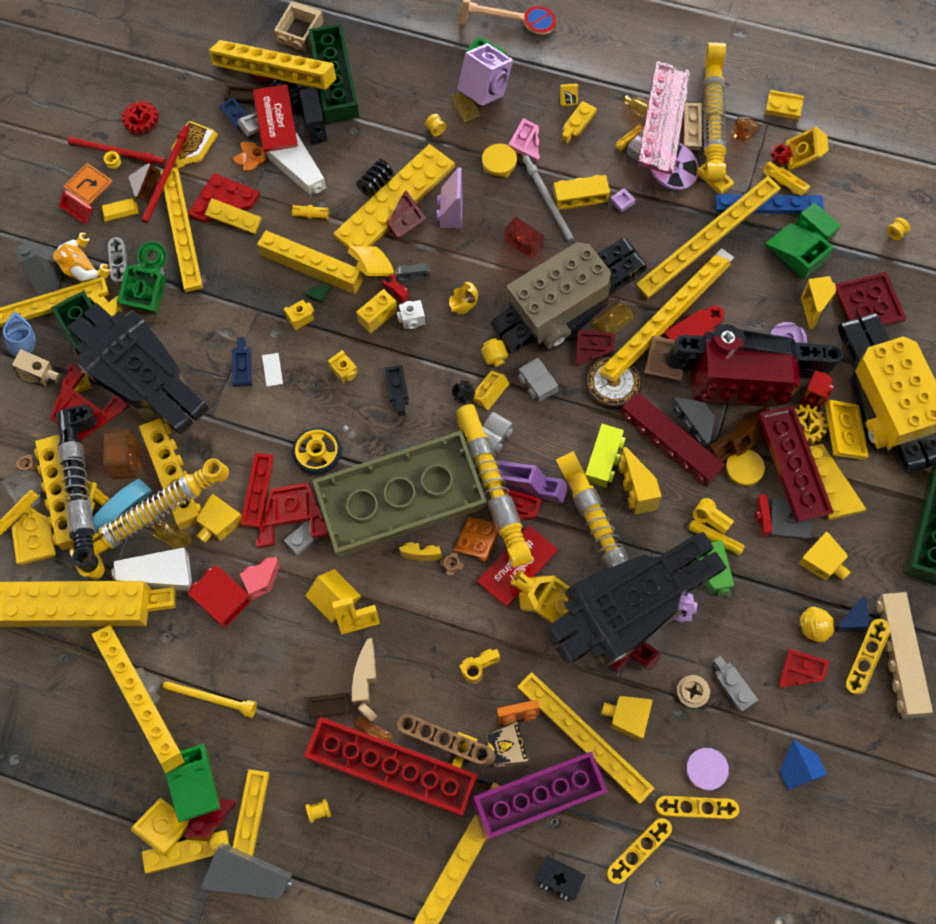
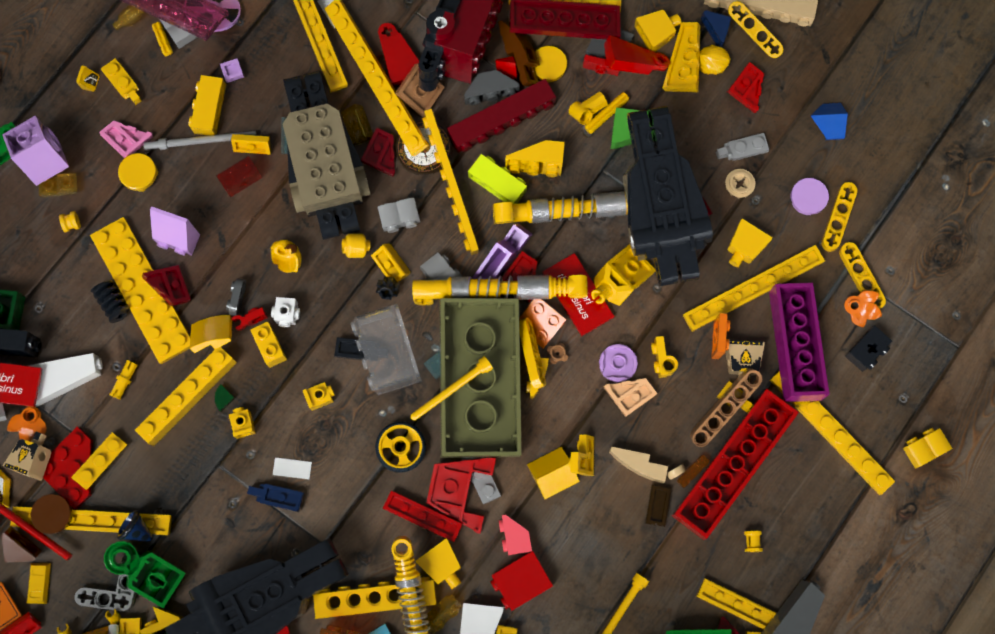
camera: 75 degrees left, 10 degrees up
(177, 195) = (51, 514): none -> reddish brown tile
(180, 260) = (134, 528): none -> hat
(220, 164) = (29, 457): none -> tan torso
(401, 405) = (385, 349): none -> clear windscreen
(407, 487) = (481, 367): none -> yellow piece
(419, 543) = (531, 353): none -> yellow beam
(431, 645) = (630, 394): none -> light nougat wing
(461, 625) = (618, 363): none -> lavender tile
(558, 235) = (251, 144): none -> yellow plate
(591, 408) = (452, 189): none -> yellow plate
(603, 862) = (866, 308): none -> orange plate
(723, 427) = (507, 66): none -> red slope
(781, 539) = (633, 58): none -> red piece
(795, 596) = (684, 62): none -> yellow wing

